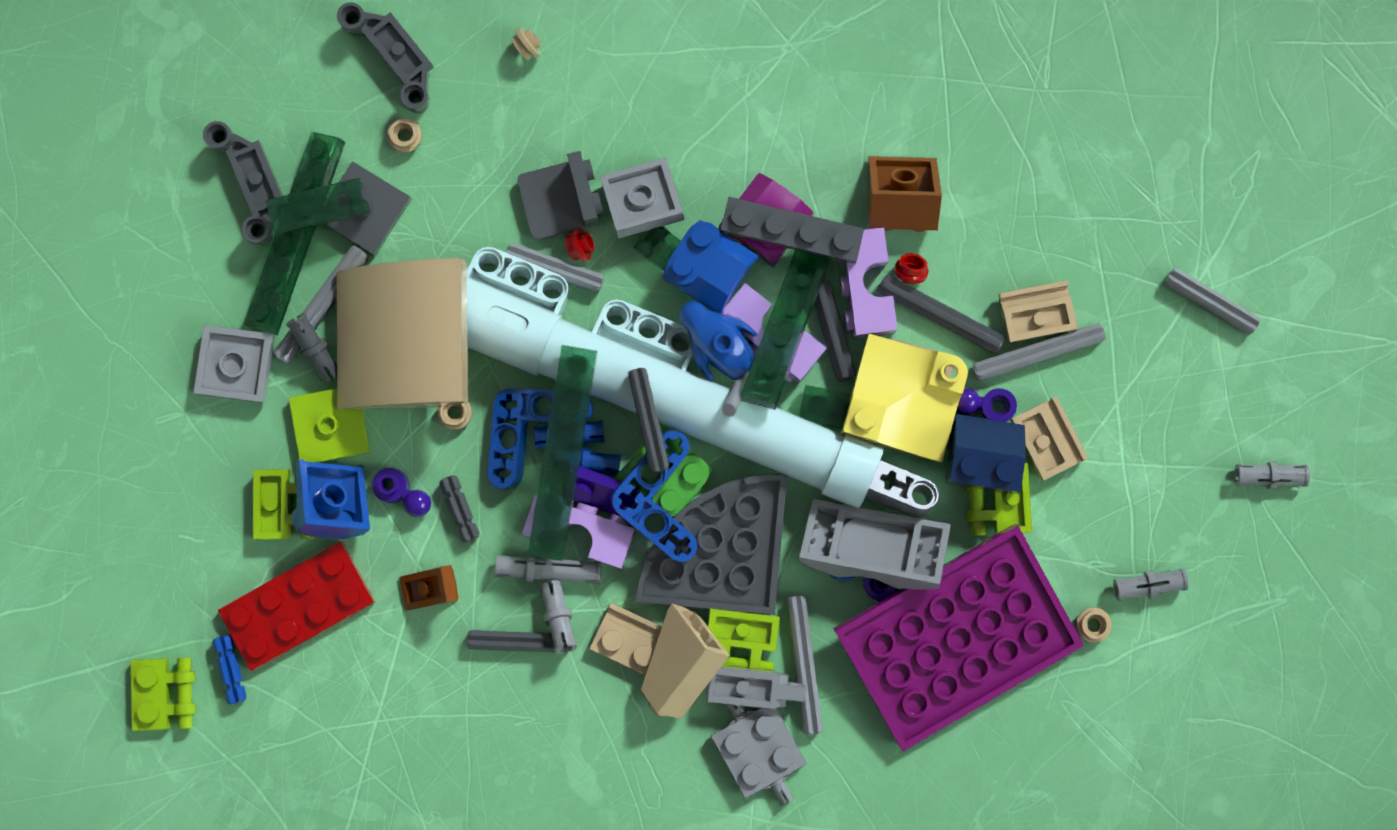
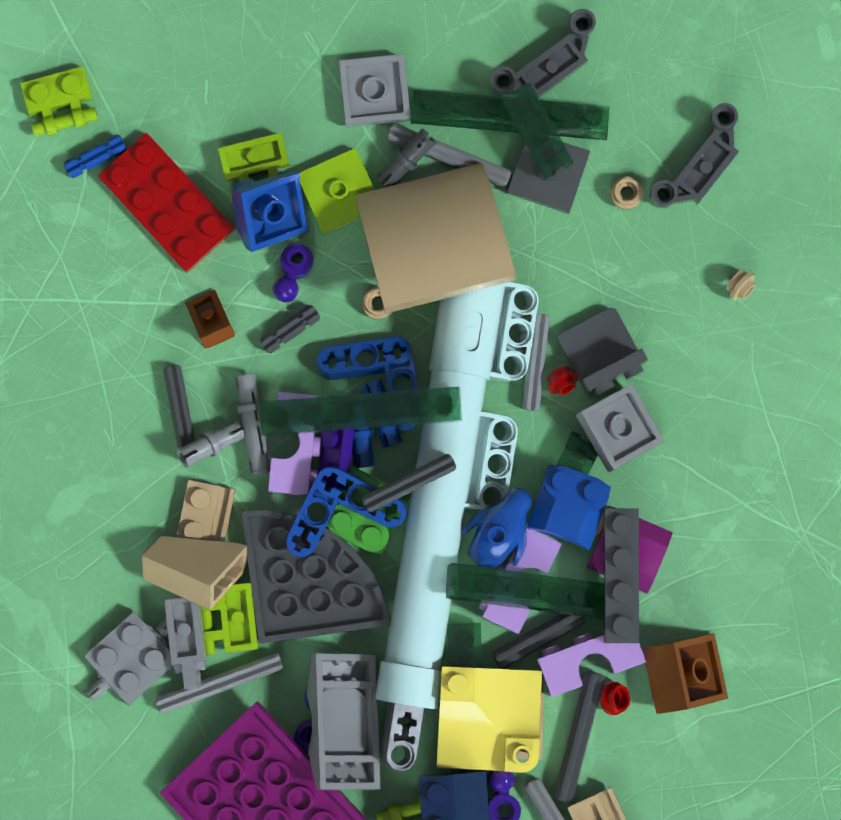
camera: 75 degrees right, 0 degrees up
(734, 396) = (448, 557): light grey bar -> none

